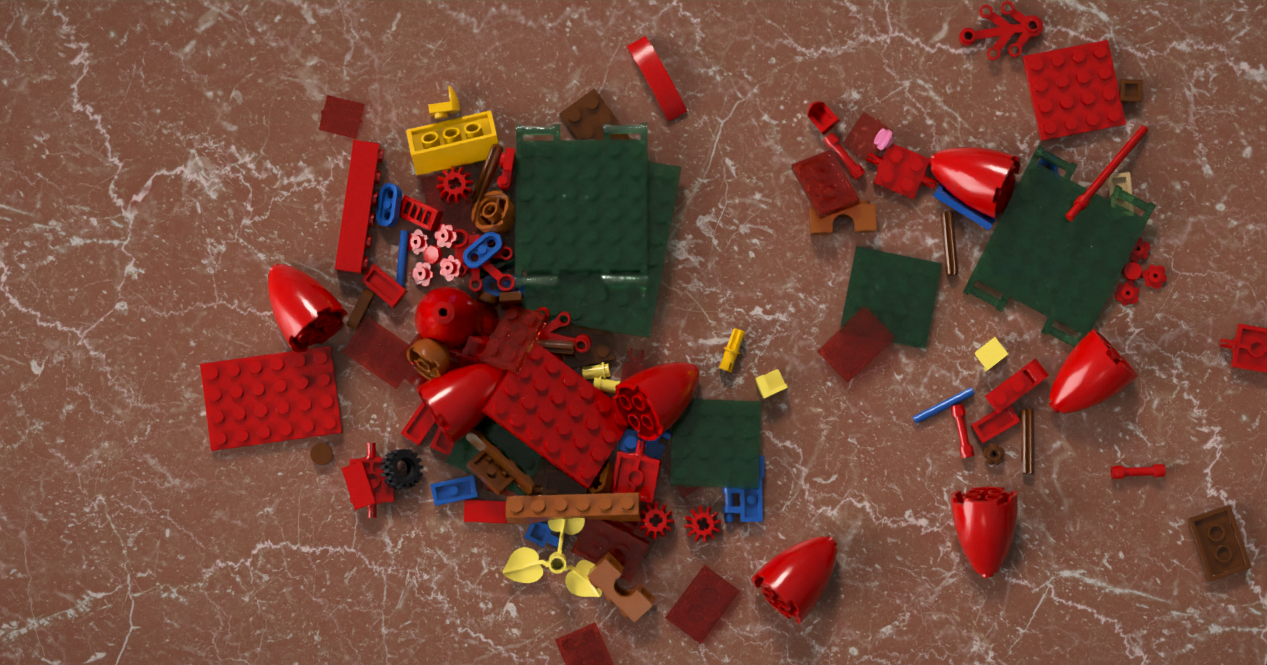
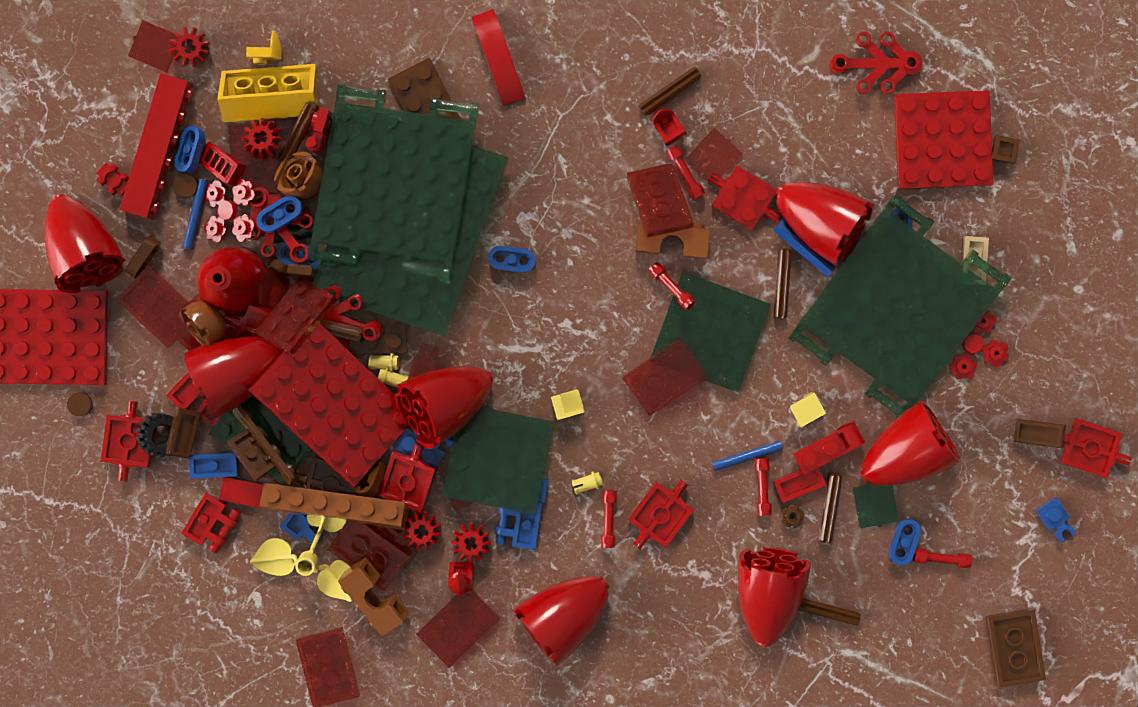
camera: 15 degrees right, 5 degrees up
(326, 245) = (109, 175): none -> red piece
(359, 485) = (111, 445): red tile -> none
(381, 108) = (182, 52): none -> red gear
(384, 285) = (171, 235): red tile -> none
(389, 239) = (185, 185): none -> reddish brown tile
(422, 464) = (182, 433): none -> reddish brown tile
(453, 541) = (204, 519): none -> red plate
(698, 259) = (512, 258): none -> blue plate
(698, 557) = (460, 577): none -> red plate
(731, 351) = (532, 362): yellow axle -> none
(802, 452) = (589, 482): none -> light yellow pin
(818, 84) = (670, 91): none -> reddish brown axle
(823, 464) = (609, 498): none -> red bar
(863, 270) = (685, 300): none -> red bar
(872, 471) = (660, 514): none -> red plate
(883, 139) = (730, 160): bright pink plate -> none
(1042, 537) = (830, 612): none -> reddish brown axle
(1068, 432) = (875, 505): none -> clear green piece
(1083, 200) = (934, 262): red bar -> none
(1101, 462) = (907, 542): none -> blue plate
(1206, 342) = (1039, 433): none -> reddish brown tile
(1234, 416) = (1053, 517): none -> blue plate

